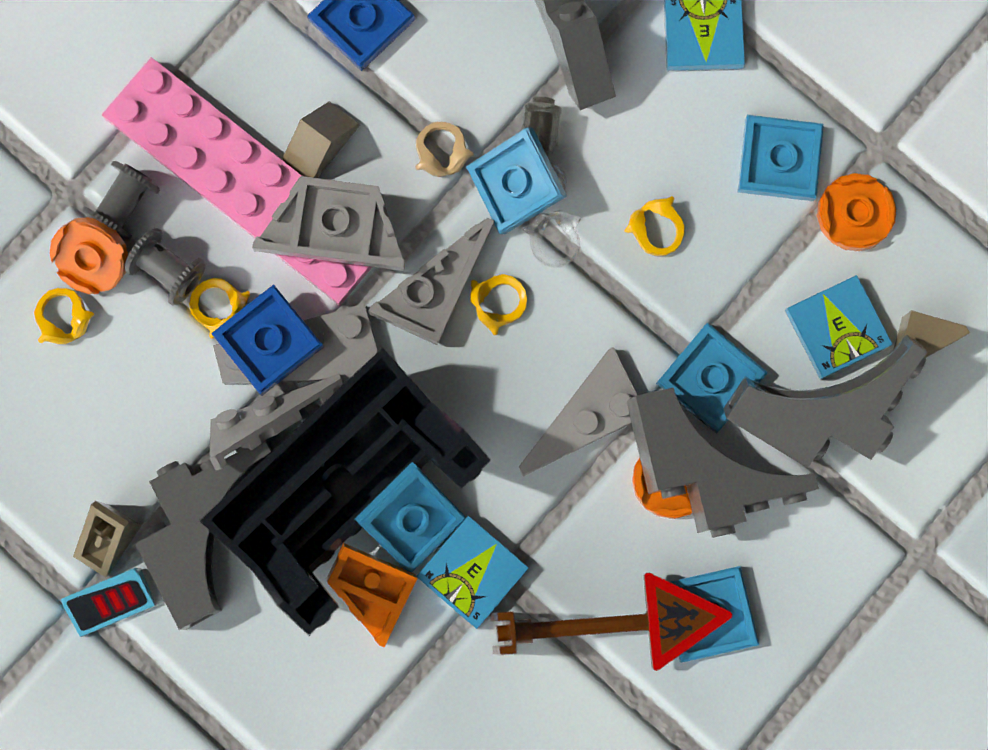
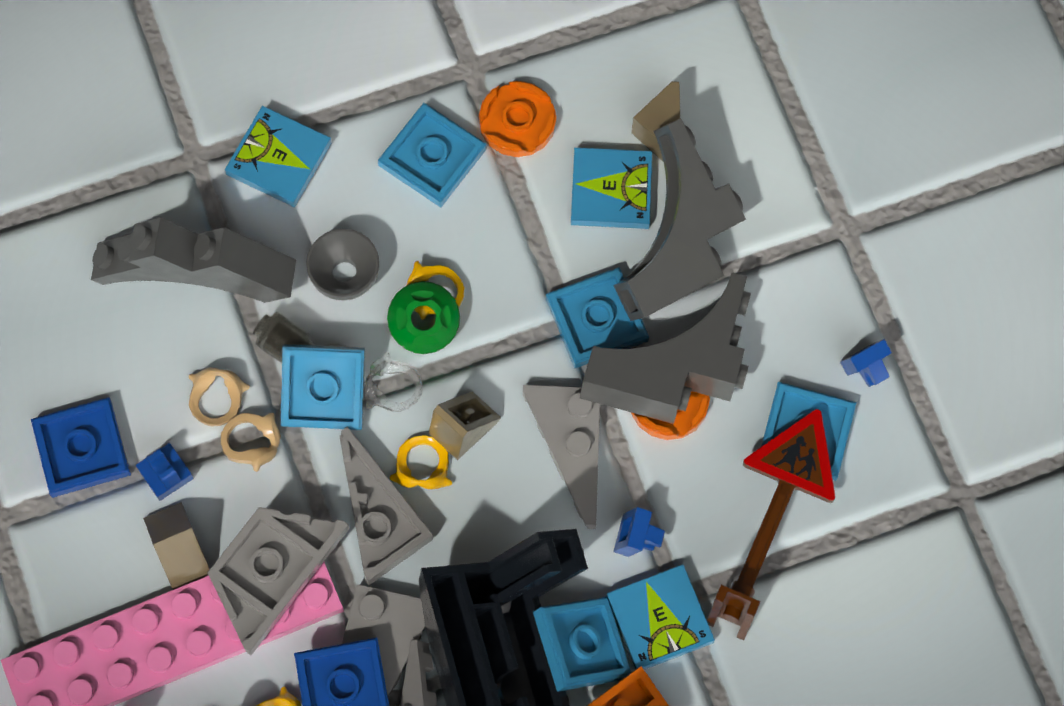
camera: 65 degrees left, 10 degrees down
(376, 95) = (164, 471): none -> blue tile
(468, 82) = (201, 384): none -> tan piece
(533, 512) = (637, 533): none -> blue tile
(552, 314) = (462, 423): none -> dark tan slope
(639, 120) = (340, 247): none -> dark grey piece
(645, 234) = (428, 295): none -> green piece
(801, 637) = (869, 363): none -> blue tile

